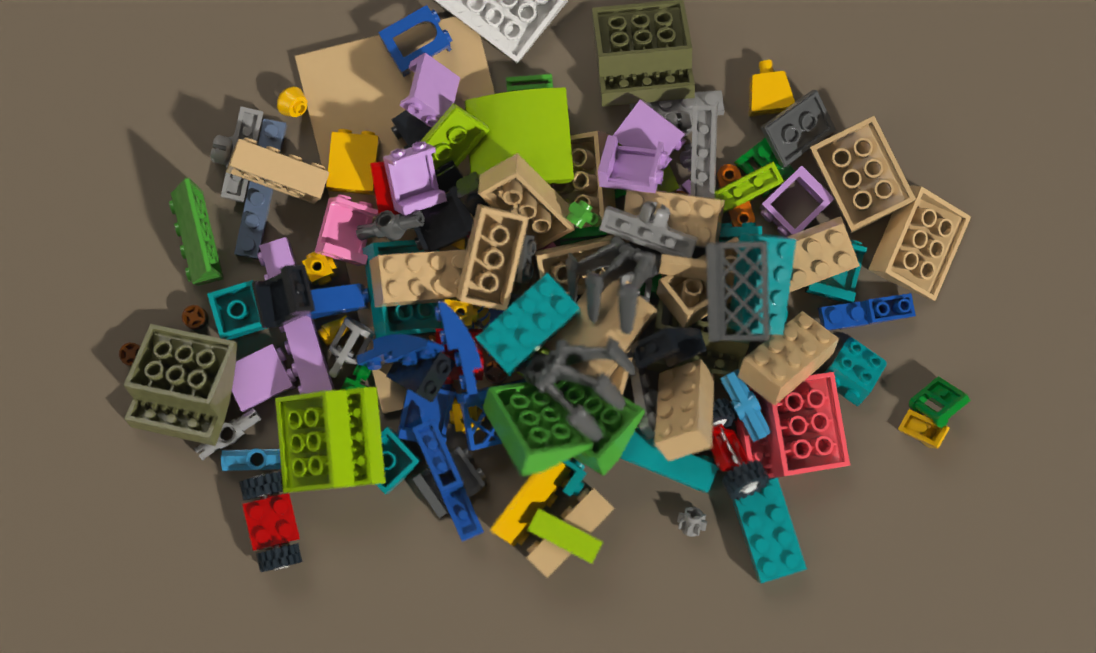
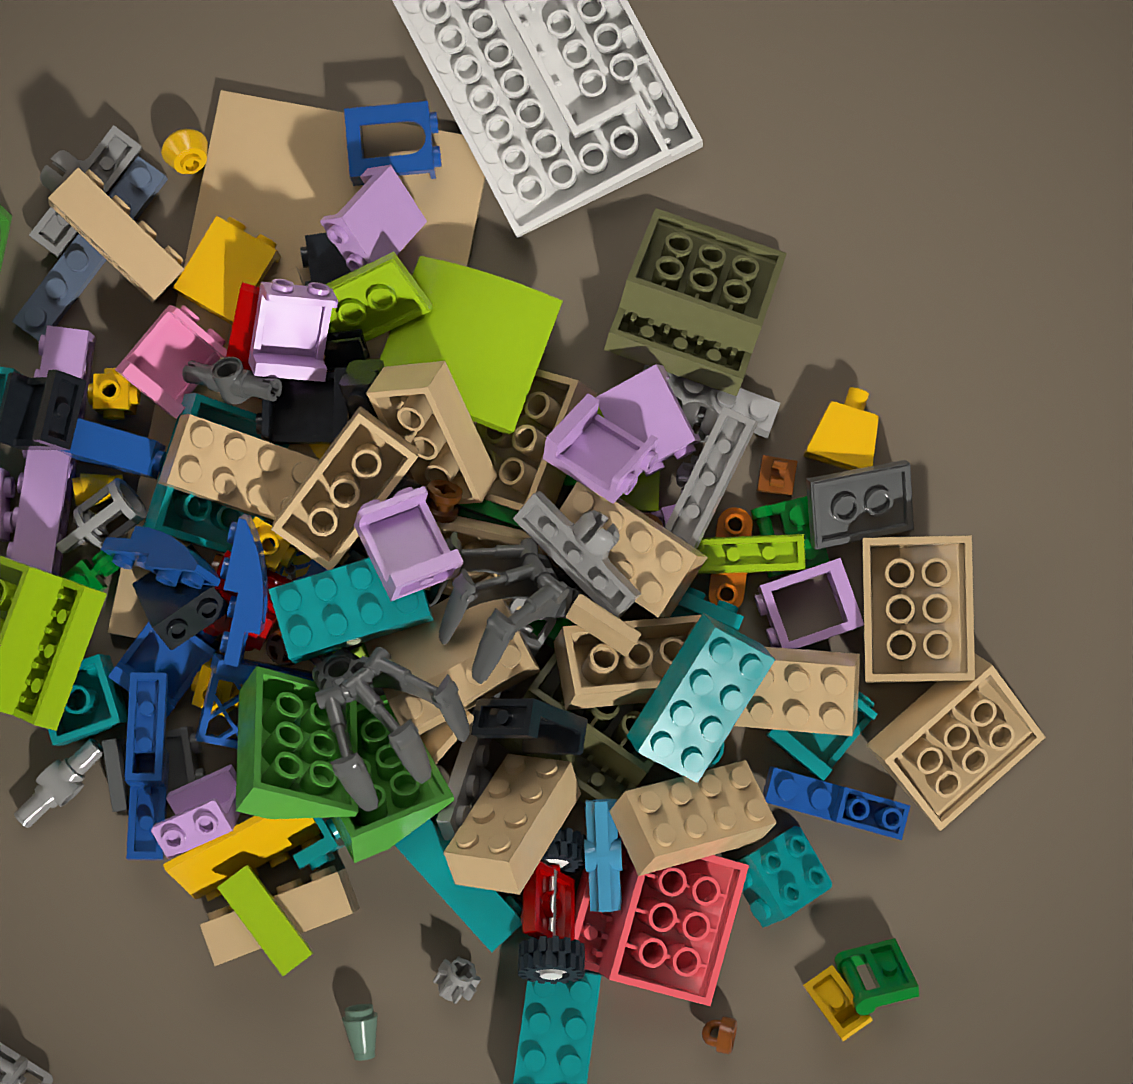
camera: 30 degrees right, 0 degrees up
(397, 517) = (59, 783): none -> light grey pin
(495, 490) = (202, 813): none -> lavender panel
(531, 78) = (524, 266): bright green tile -> none
(546, 271) = (406, 543): none -> lavender panel
(551, 239) = (443, 499): none -> reddish brown wheel
(581, 213) = (500, 484): bright green plate -> none
(648, 577) = (361, 1030): none -> sand green cone
(717, 291) = (630, 680): dark grey fence -> none
(739, 135) = (777, 475): none -> dark orange tile
(866, 479) = (726, 1035): none -> dark orange tile

